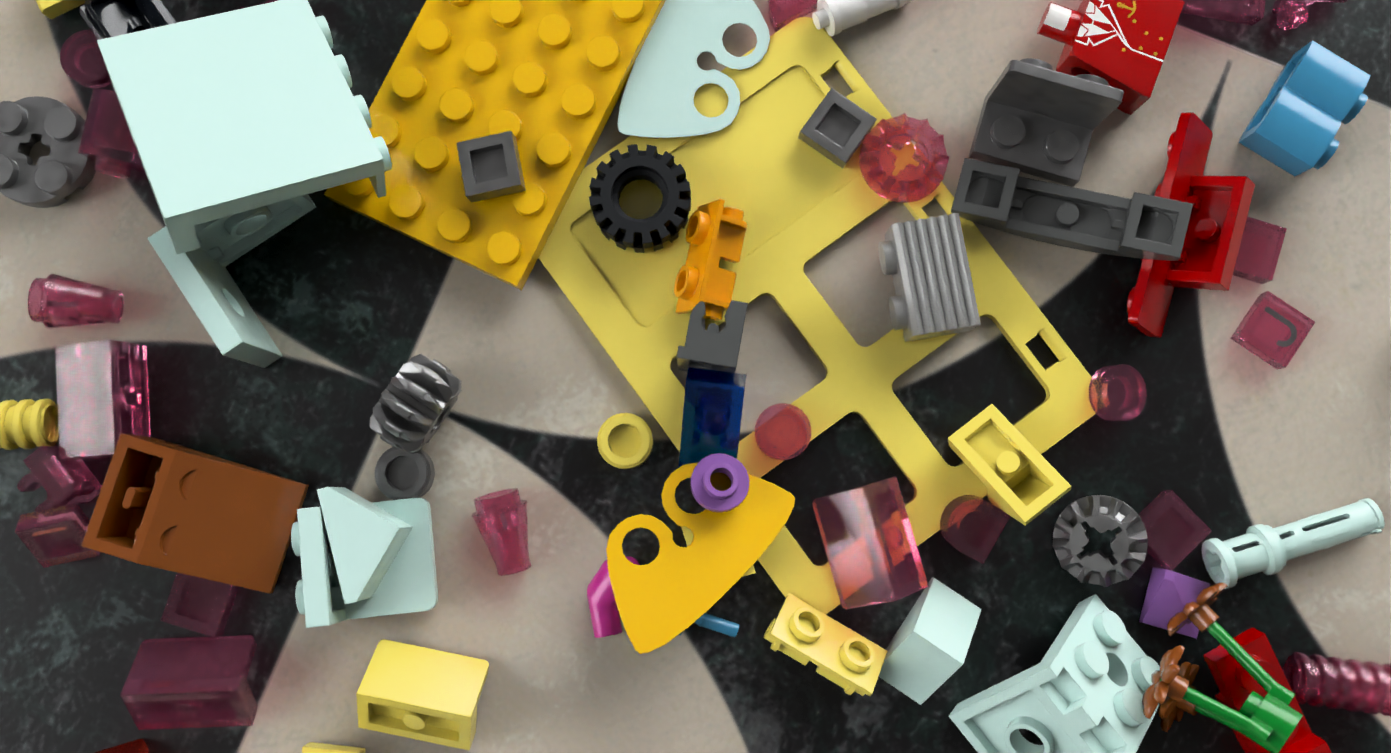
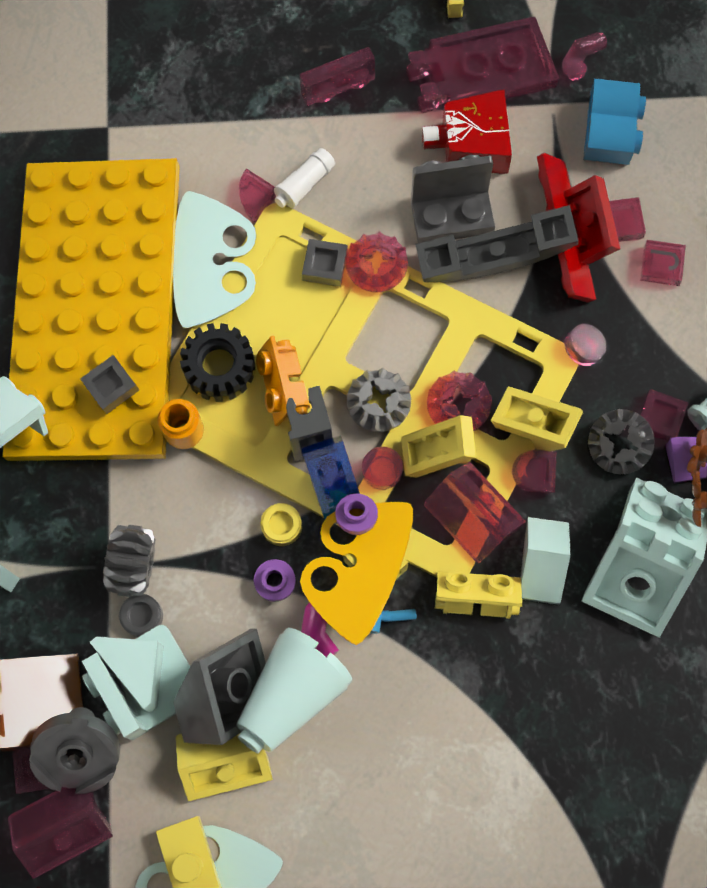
camera: 25 degrees left, 10 degrees down
(243, 612) = (78, 731): none -> flat silver plate
(457, 628) = (218, 690): none -> flat silver slope
(504, 528) = (224, 614): clear pink cone -> none
(531, 667) = (290, 691): none -> light aqua cone
(545, 247) = (176, 414): none -> light orange brick
(602, 508) = (281, 591): none -> medium lavender plate
(800, 359) = (371, 415): none -> light grey gear
(865, 444) = (438, 446): none -> light yellow tile
(897, 406) = (470, 387): none -> clear pink gear
(929, 278) = (429, 326): light grey brick -> none

